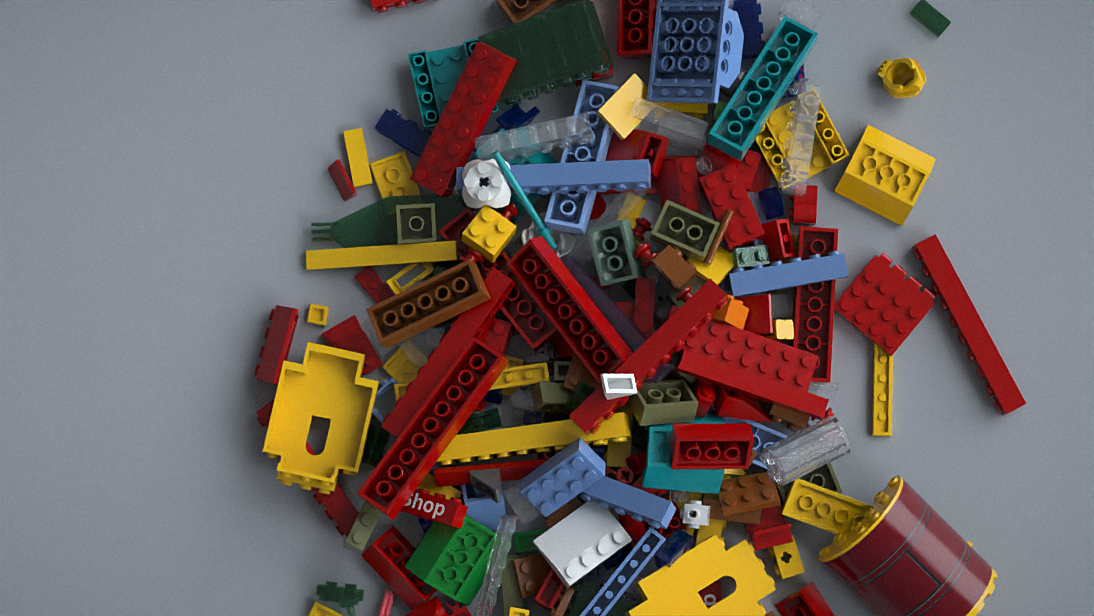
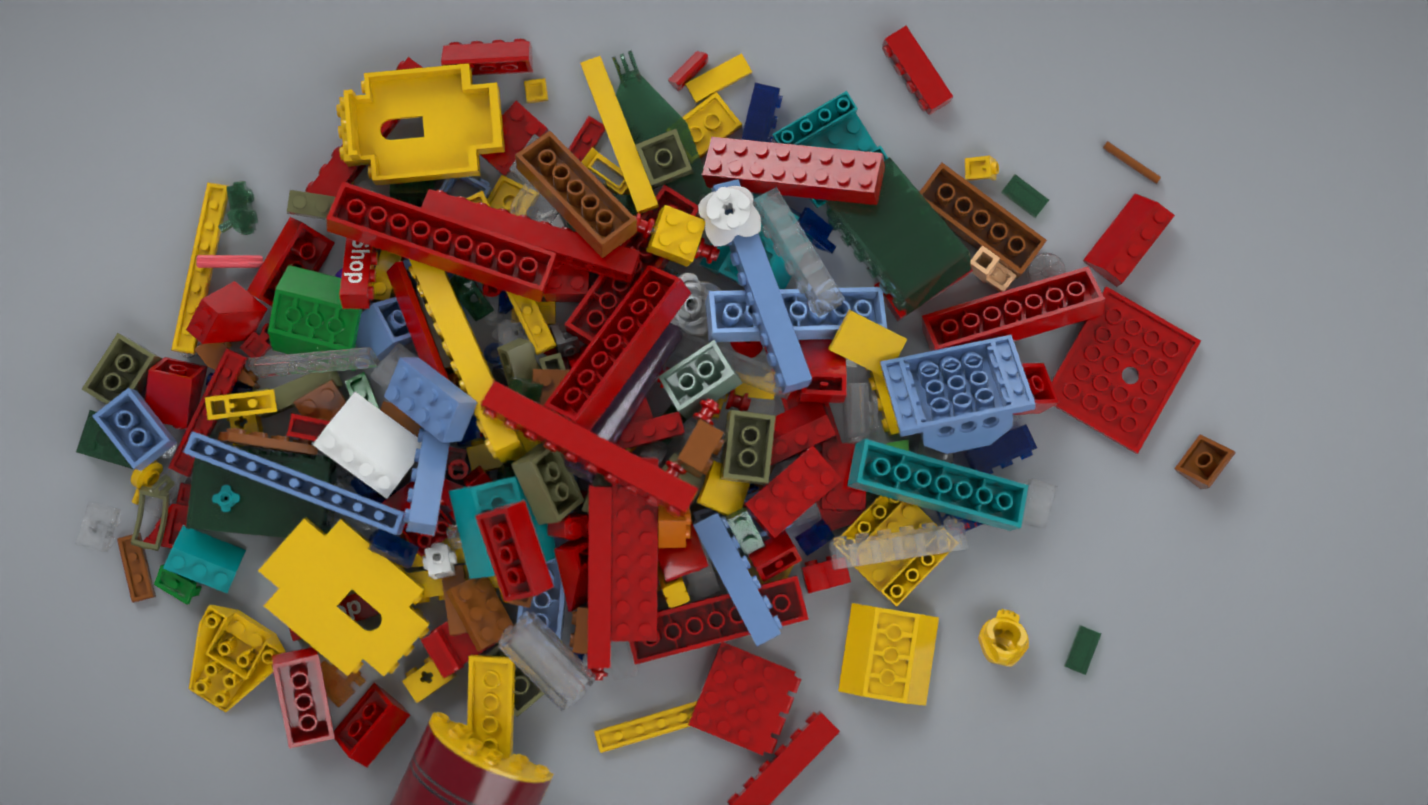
camera: 75 degrees right, 0 degrees up
(488, 483) = (403, 323): dark grey slope -> none
(543, 230) = (699, 295): teal bar -> none
(618, 385) = (542, 422): white slope -> none
(669, 119) = (867, 391): clear plate -> none
(704, 165) = (830, 448): clear tile -> none
(718, 236) = (754, 487): dark orange bar -> none

